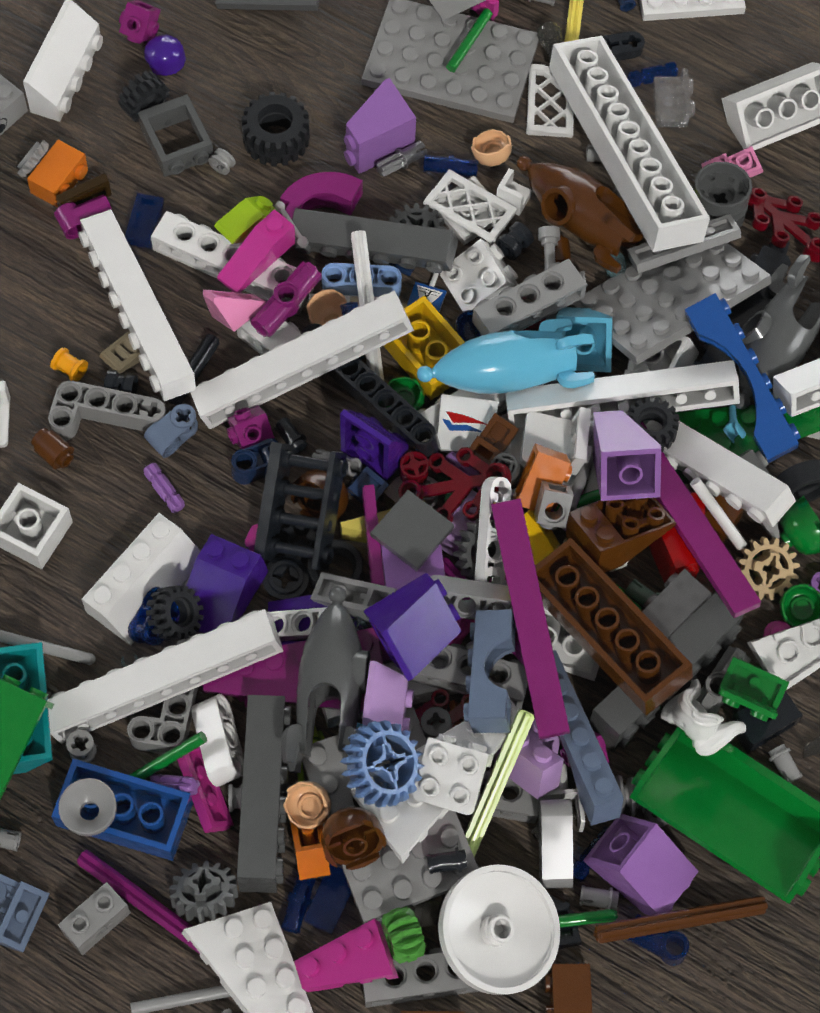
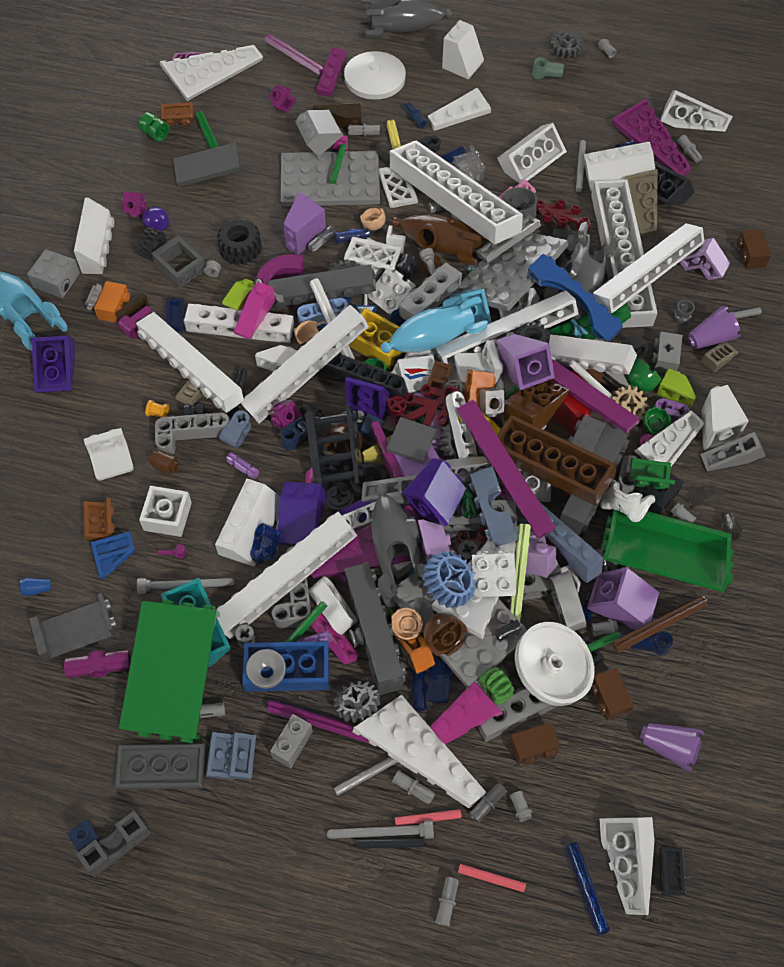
camera: 15 degrees left, 5 degrees down
(31, 591) = (179, 551): none -> magenta hand
(161, 614) = (271, 538): black tyre -> none
(232, 308) = (249, 347): bright pink slope -> none
(277, 311) = (282, 332): magenta piece -> none
(458, 650) = (467, 502): none -> dark green pin

